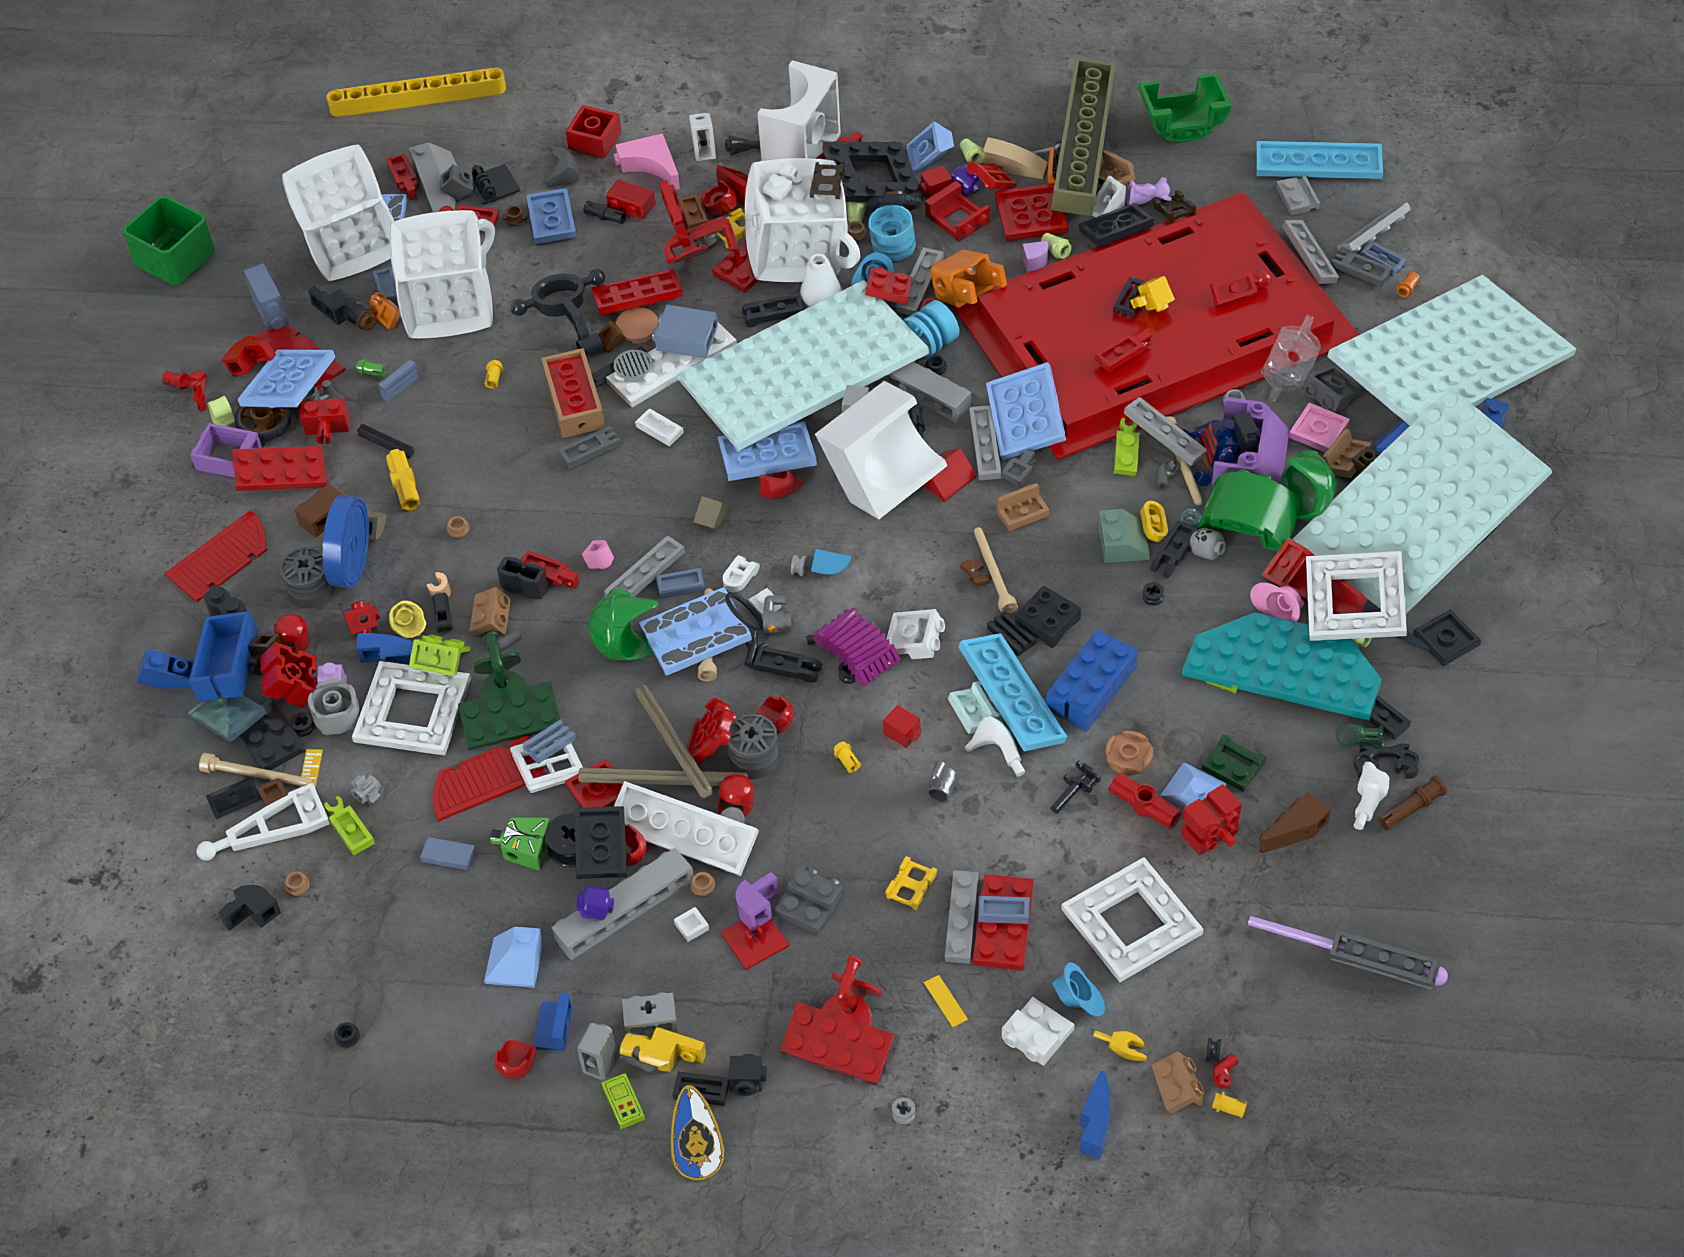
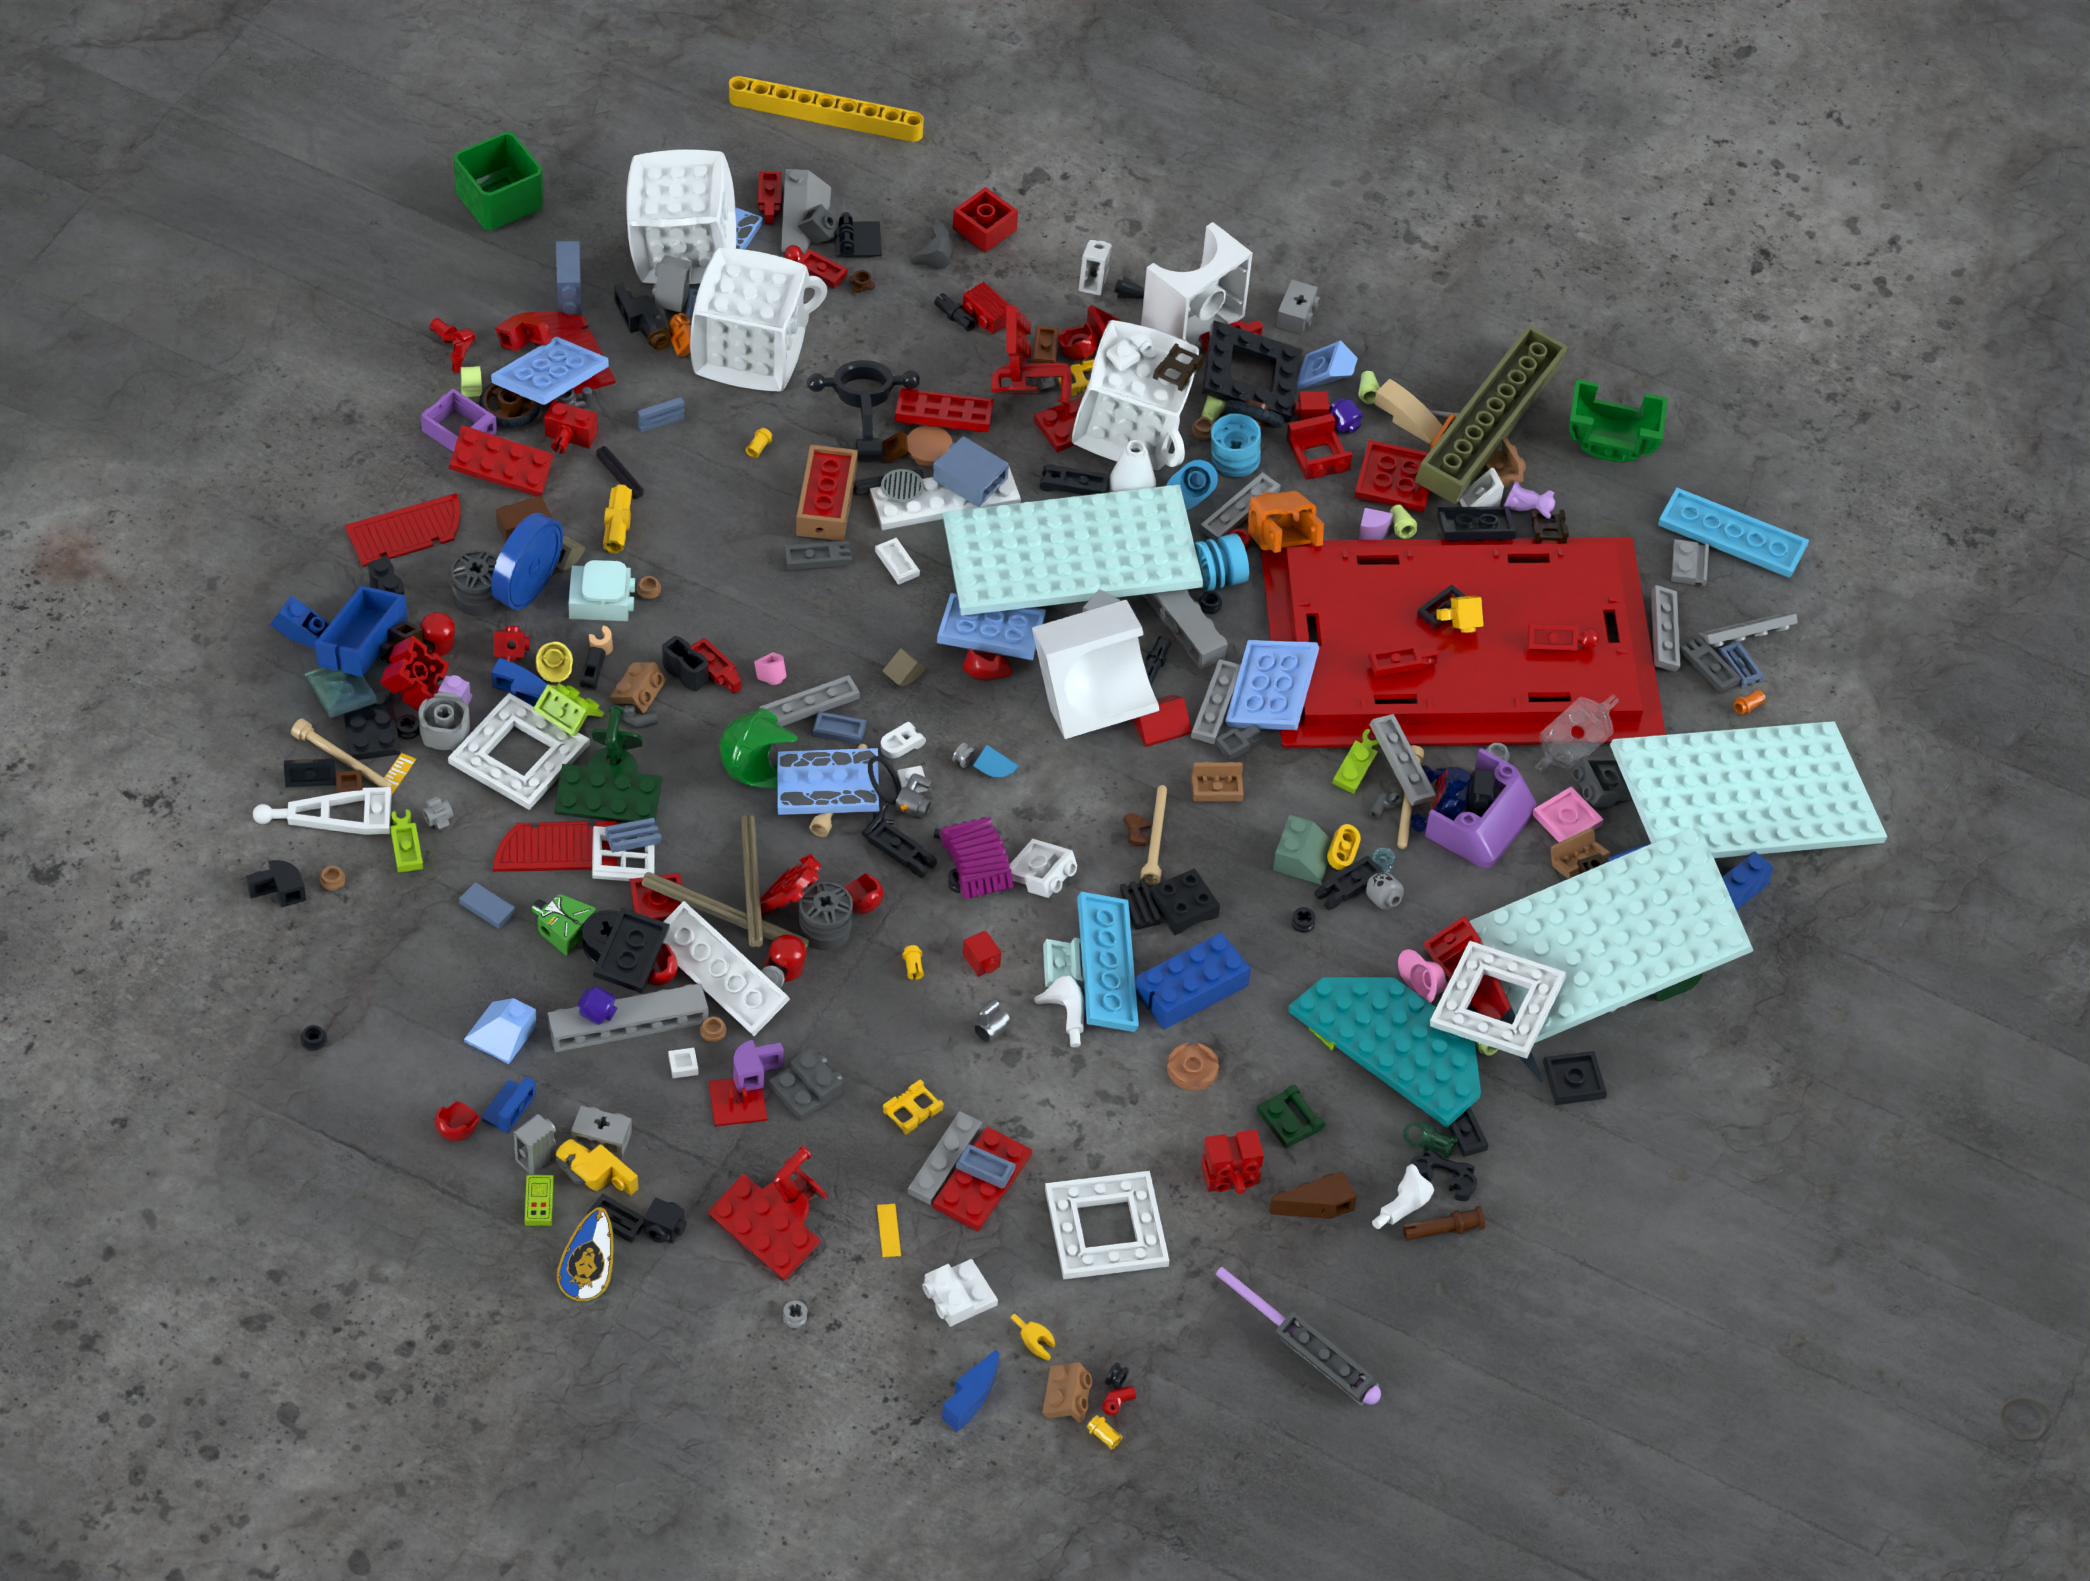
camera: 15 degrees right, 0 degrees up
(357, 270) = (672, 283): none -> light grey brick
(370, 368) = (636, 388): bright green pin -> none
(419, 545) = (601, 591): none -> light aqua brick
(551, 216) = (898, 296): medium blue plate -> none
(647, 156) = (1029, 267): bright pink arch -> none
(881, 110) = (1297, 307): none -> light grey brick
(889, 285) = (1201, 500): red plate -> none
(992, 176) = (1373, 422): red plate -> none
(1075, 785) = (1122, 1077): black piece -> none
(1077, 991) = (1017, 1269): dark azure piece -> none
(1154, 807) = (1173, 1107): red piece -> none
(1188, 786) = (1235, 1118): light blue slope -> none
(1252, 507) = (1445, 872): green cylinder -> none
(1312, 482) = (1512, 874): green piece -> none

